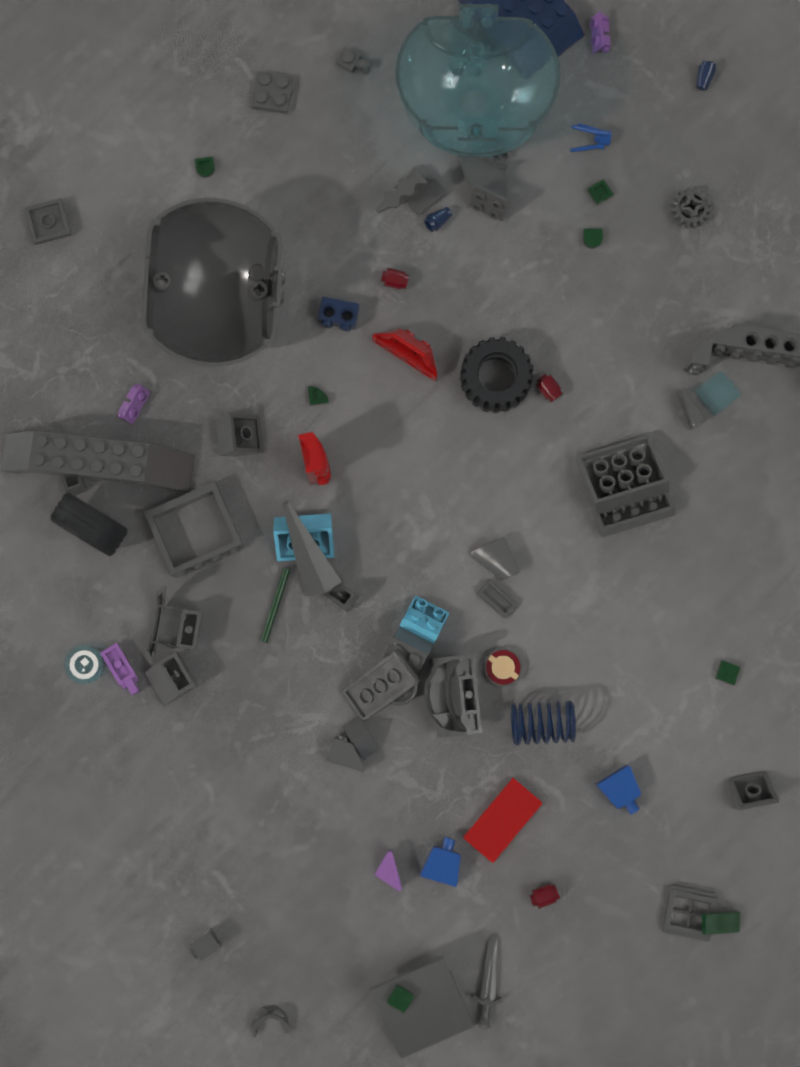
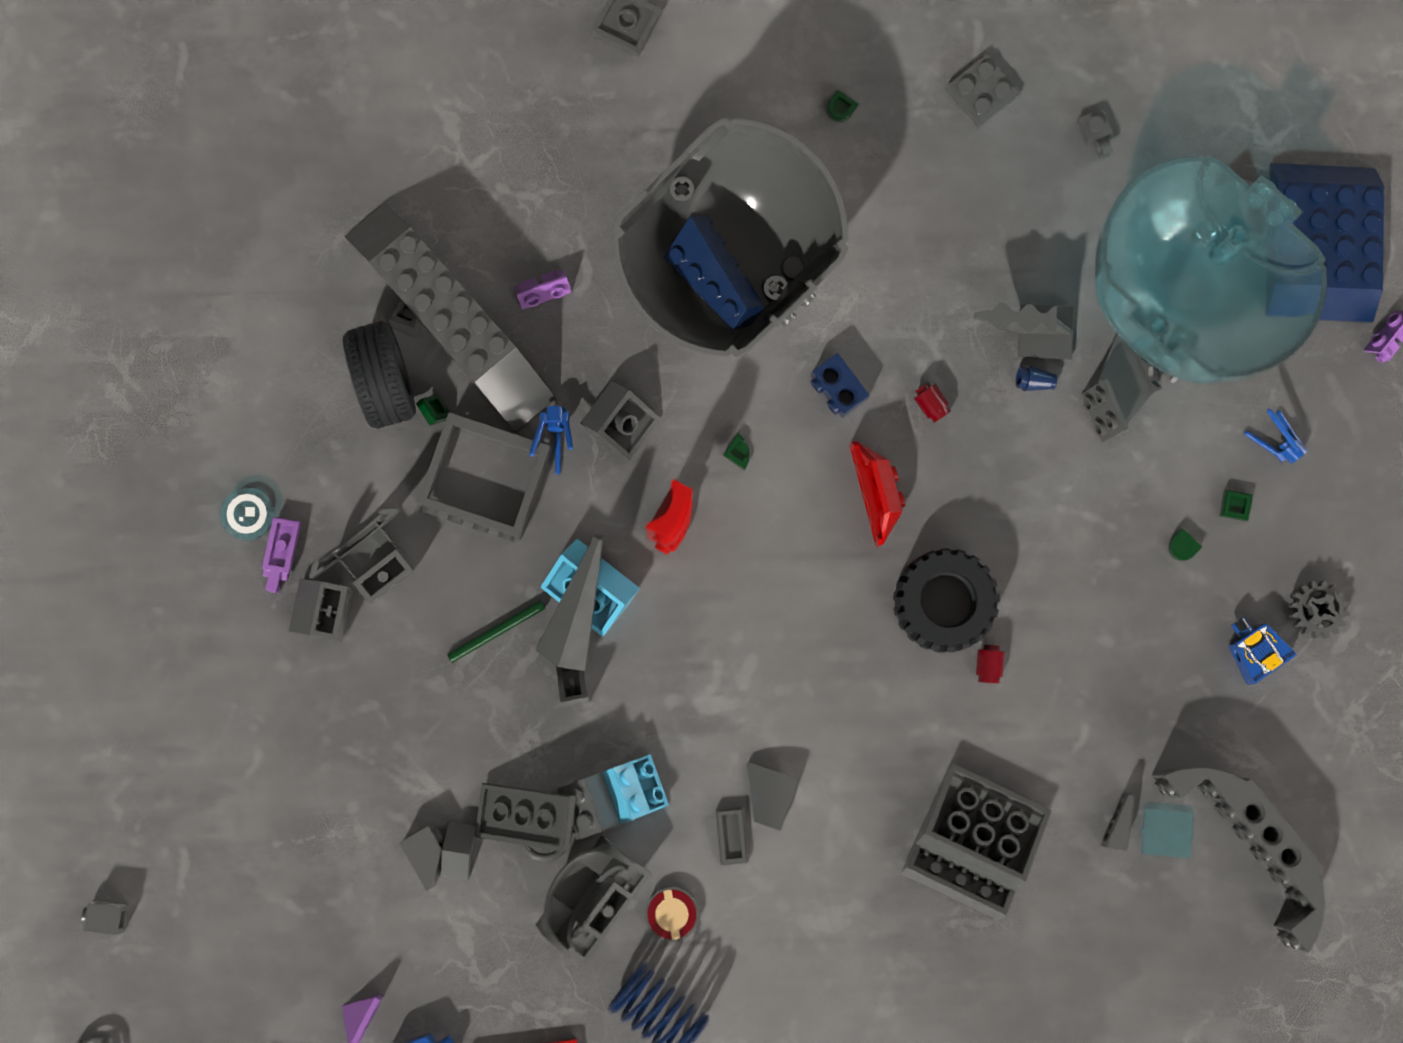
camera: 40 degrees right, 0 degrees up
(134, 519) = (433, 409): none -> dark green tile
(204, 464) = (555, 419): none -> blue plant
(218, 311) = (713, 273): none -> dark blue wedge
(679, 256) = (1258, 650): none -> torso

